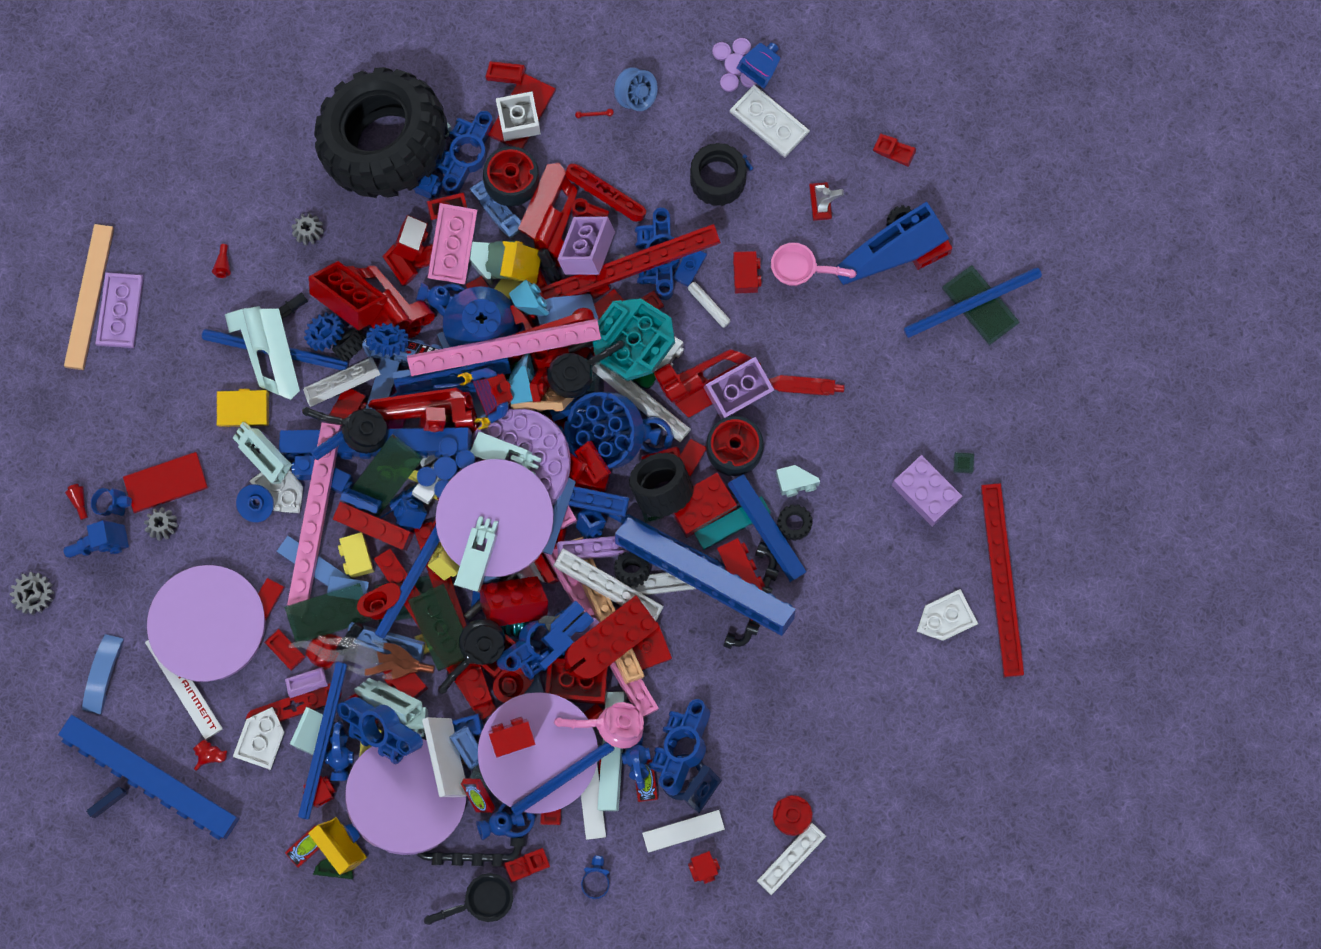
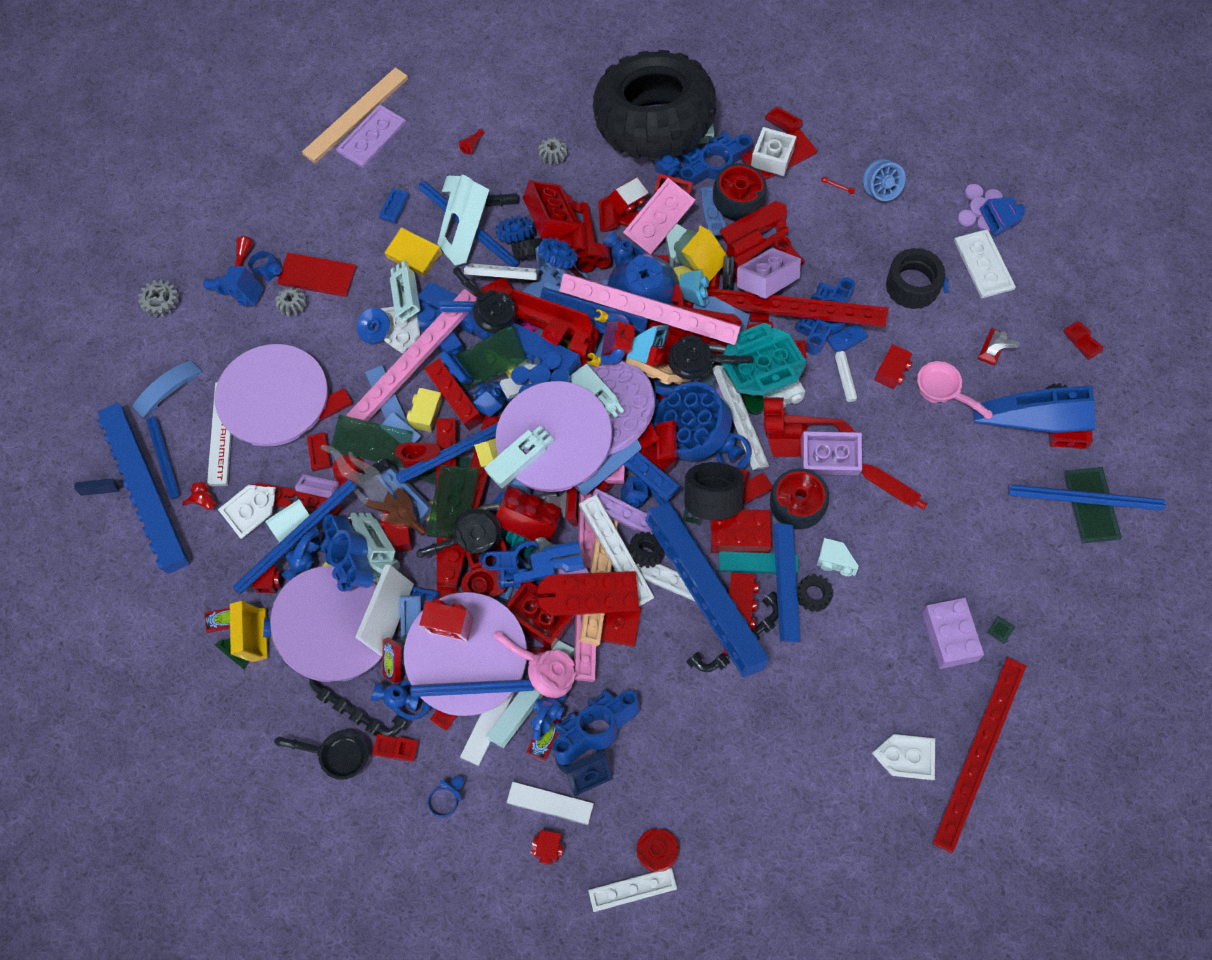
camera: 30 degrees right, 10 degrees down
(146, 739) = (163, 458): none -> blue axle
(192, 371) = (394, 205): none -> blue plate
(612, 197) = (811, 246): red piece -> none

